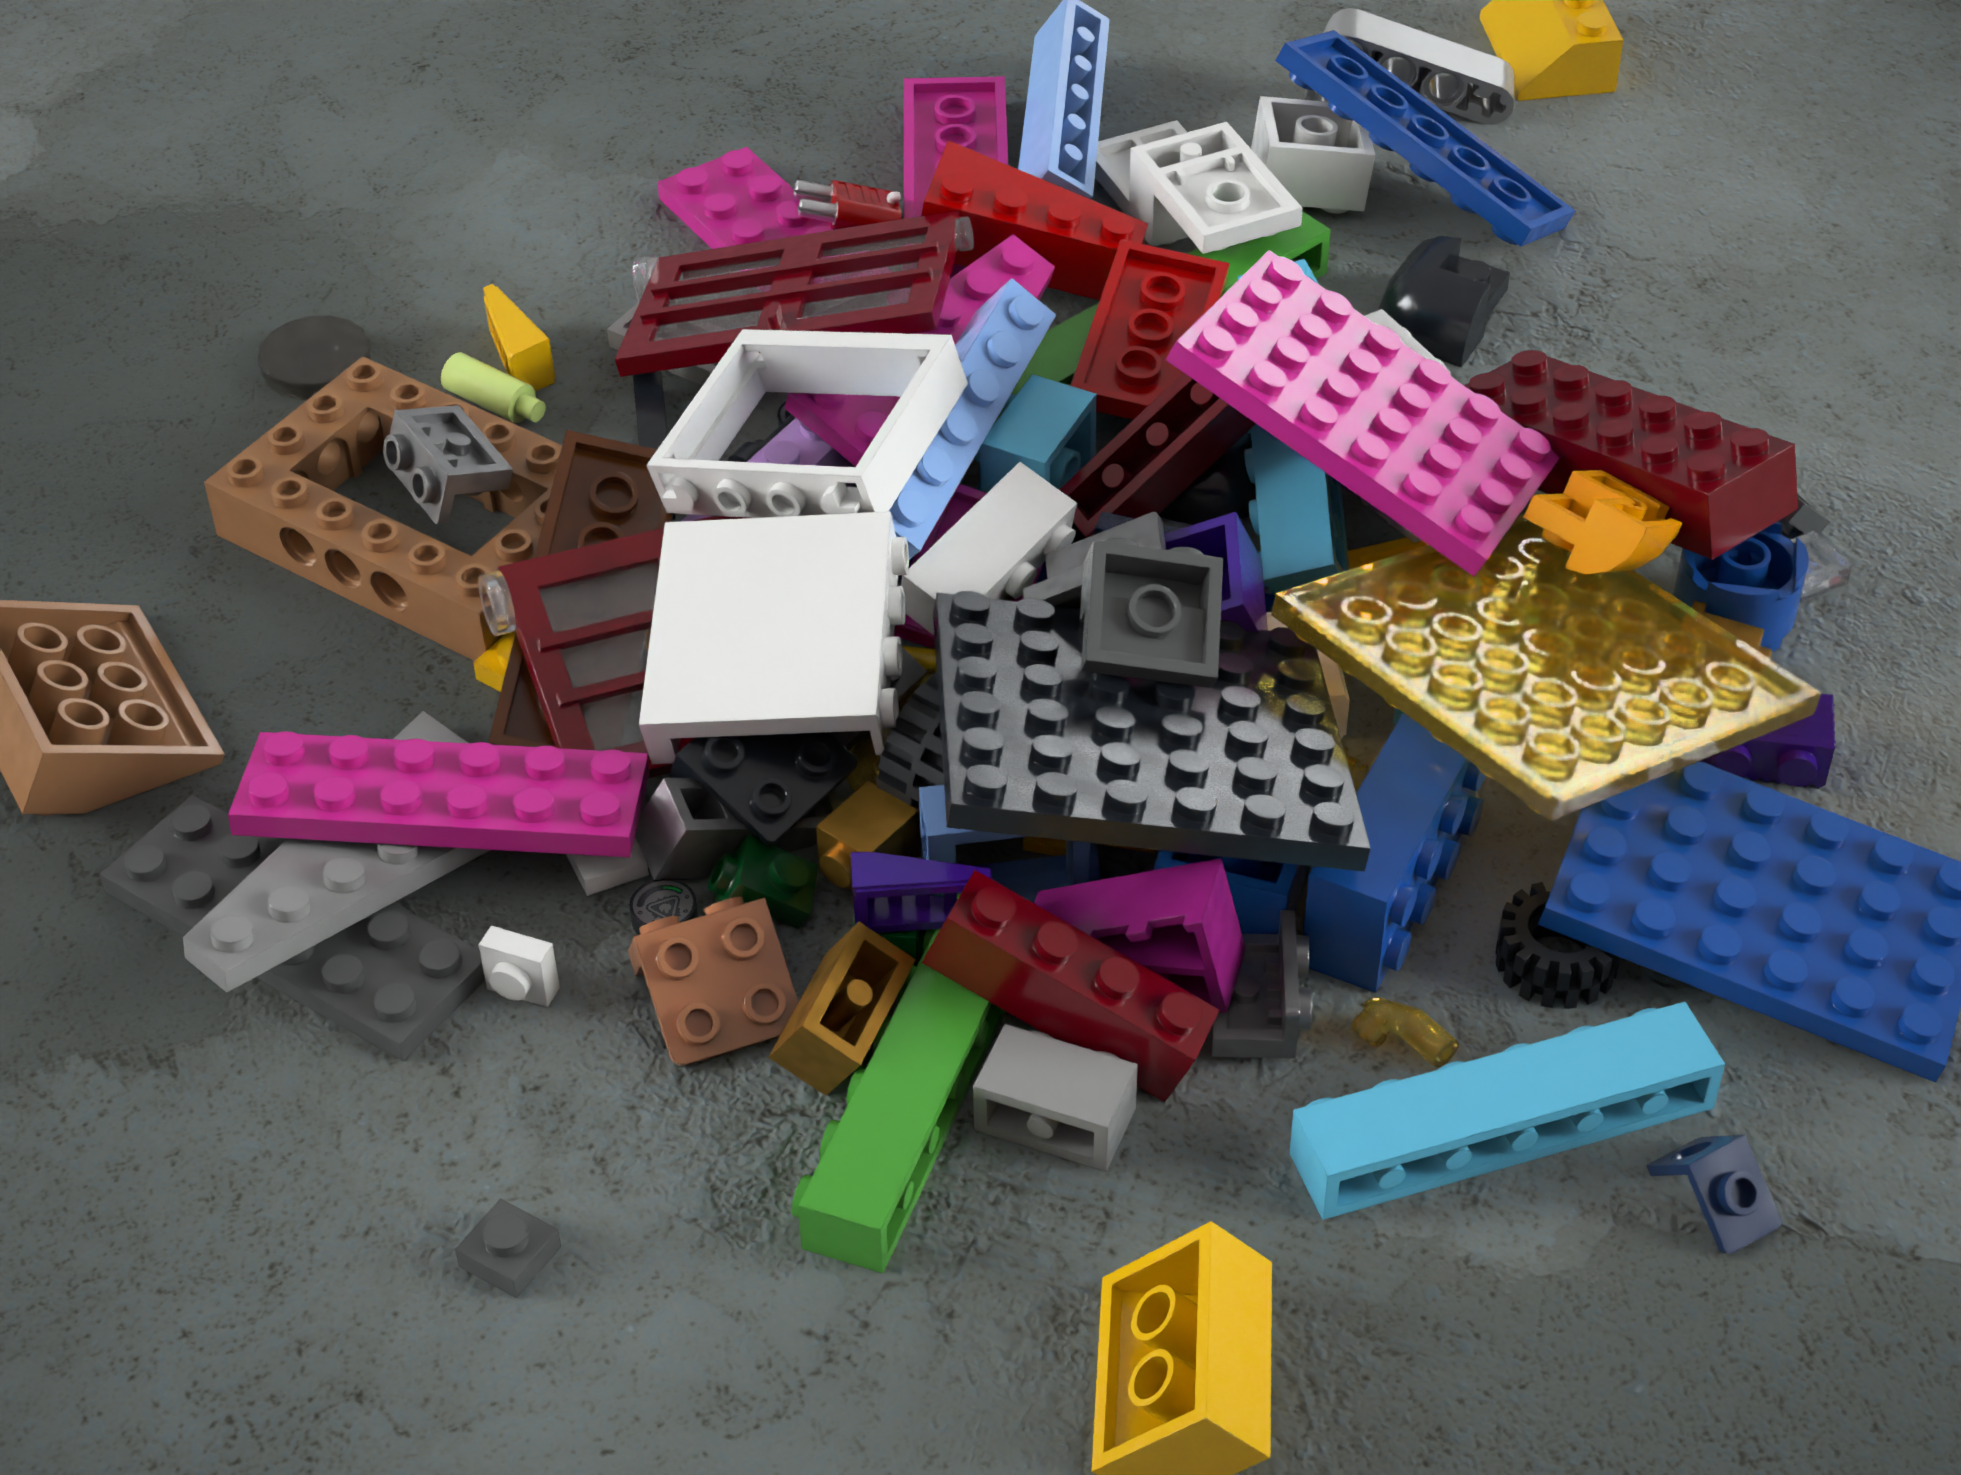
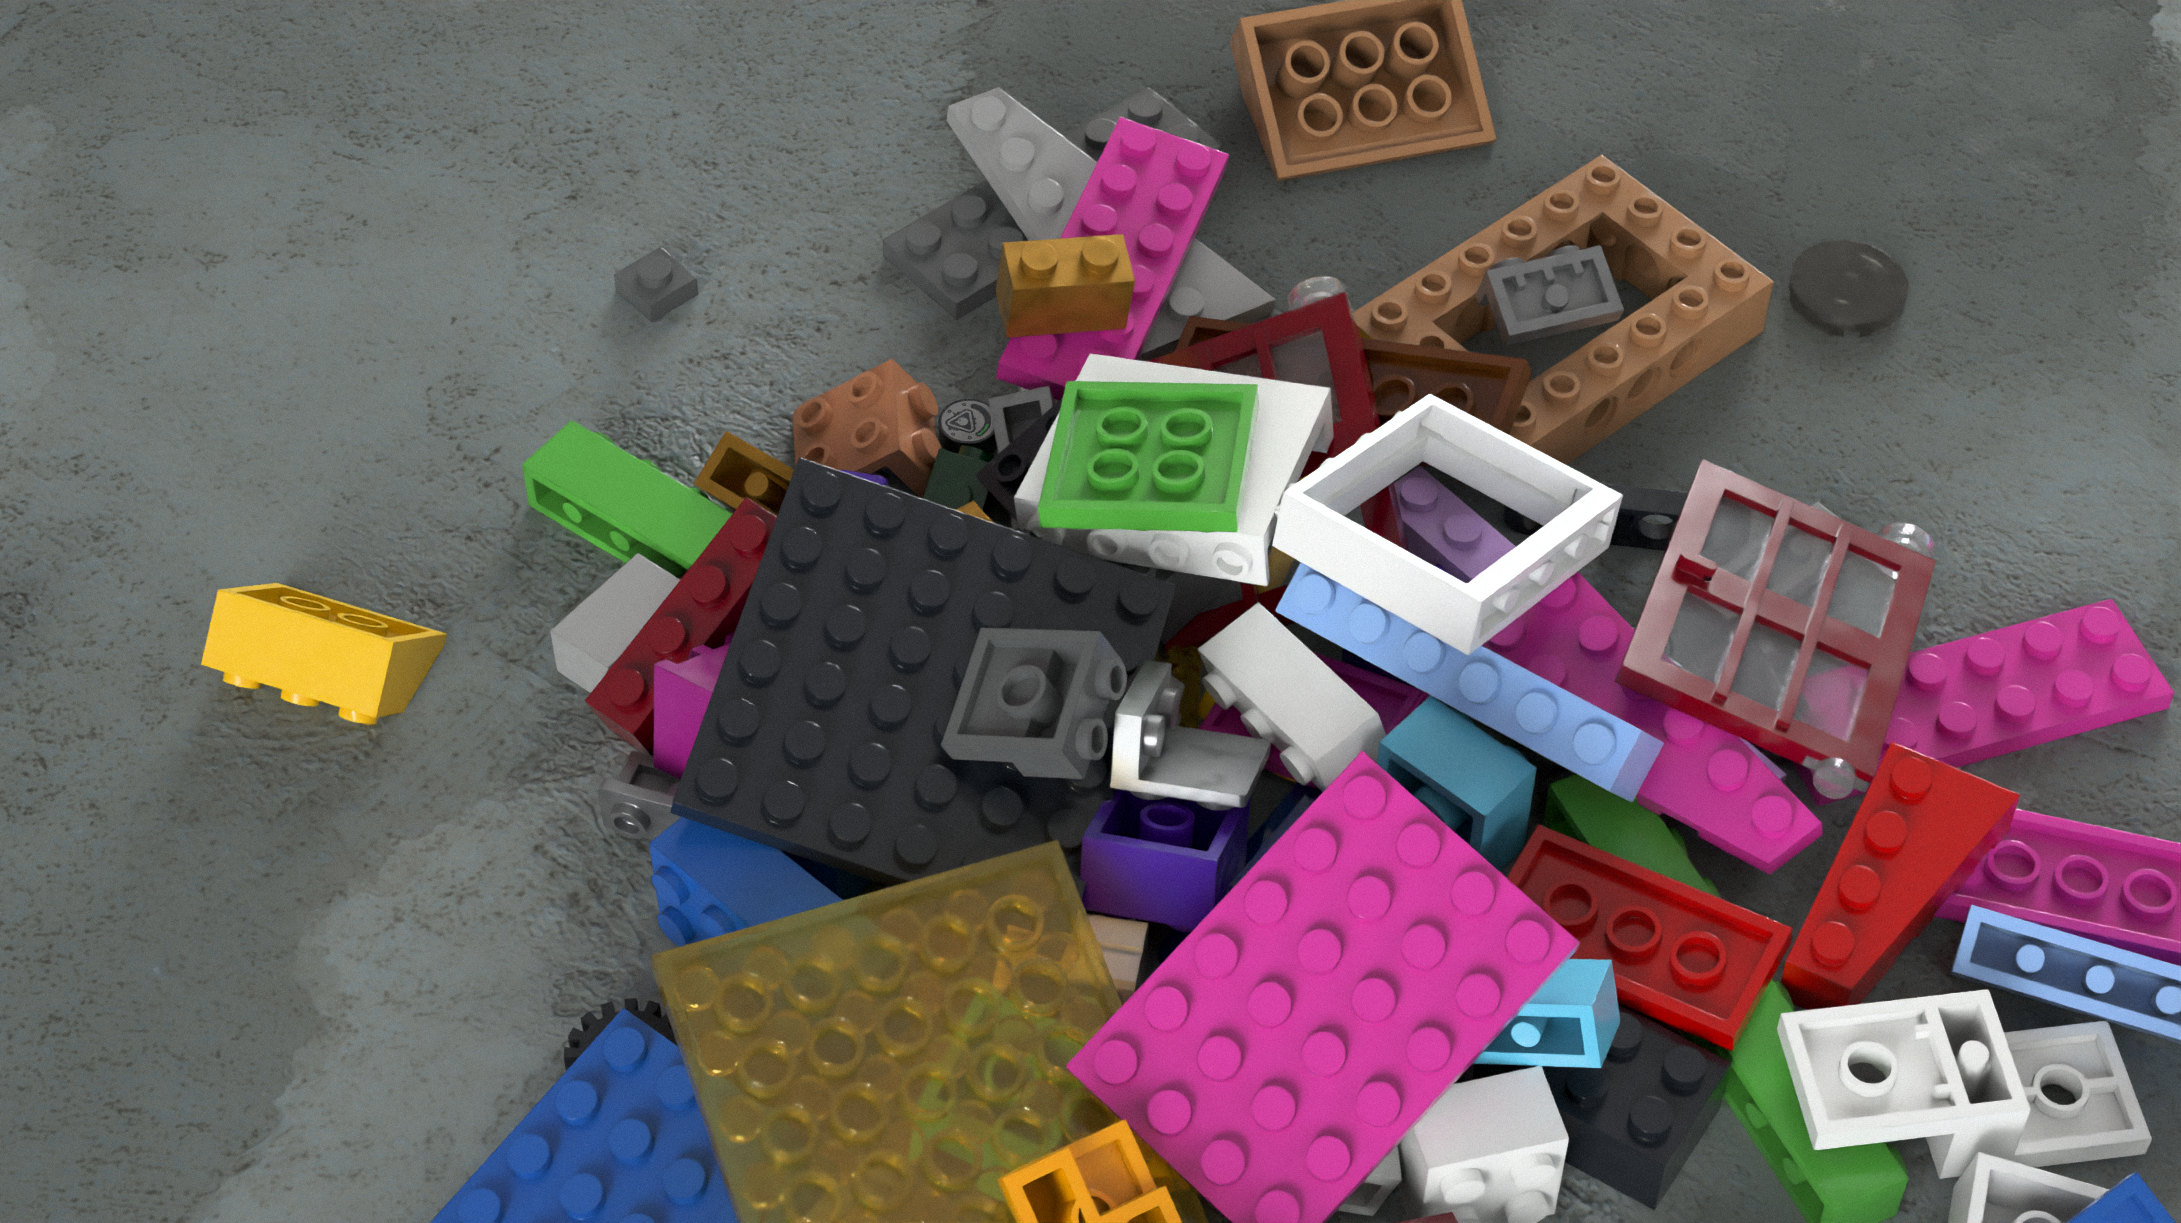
camera: 105 degrees right, 5 degrees up
(491, 389) = (1750, 408): yellowish green cylinder -> none
(518, 340) = (1819, 429): yellow slope -> none
(519, 966) = (929, 315): white plate -> none
(544, 765) = (1064, 285): none -> pearl gold brick
(815, 602) = (1150, 456): none -> bright green plate
(846, 203) = (2006, 752): red piece -> none
(1410, 1023) = (600, 915): clear yellow arm -> none
(1504, 1109) = (456, 955): medium azure brick -> none
(1726, 1187) = (297, 1078): dark blue bracket -> none

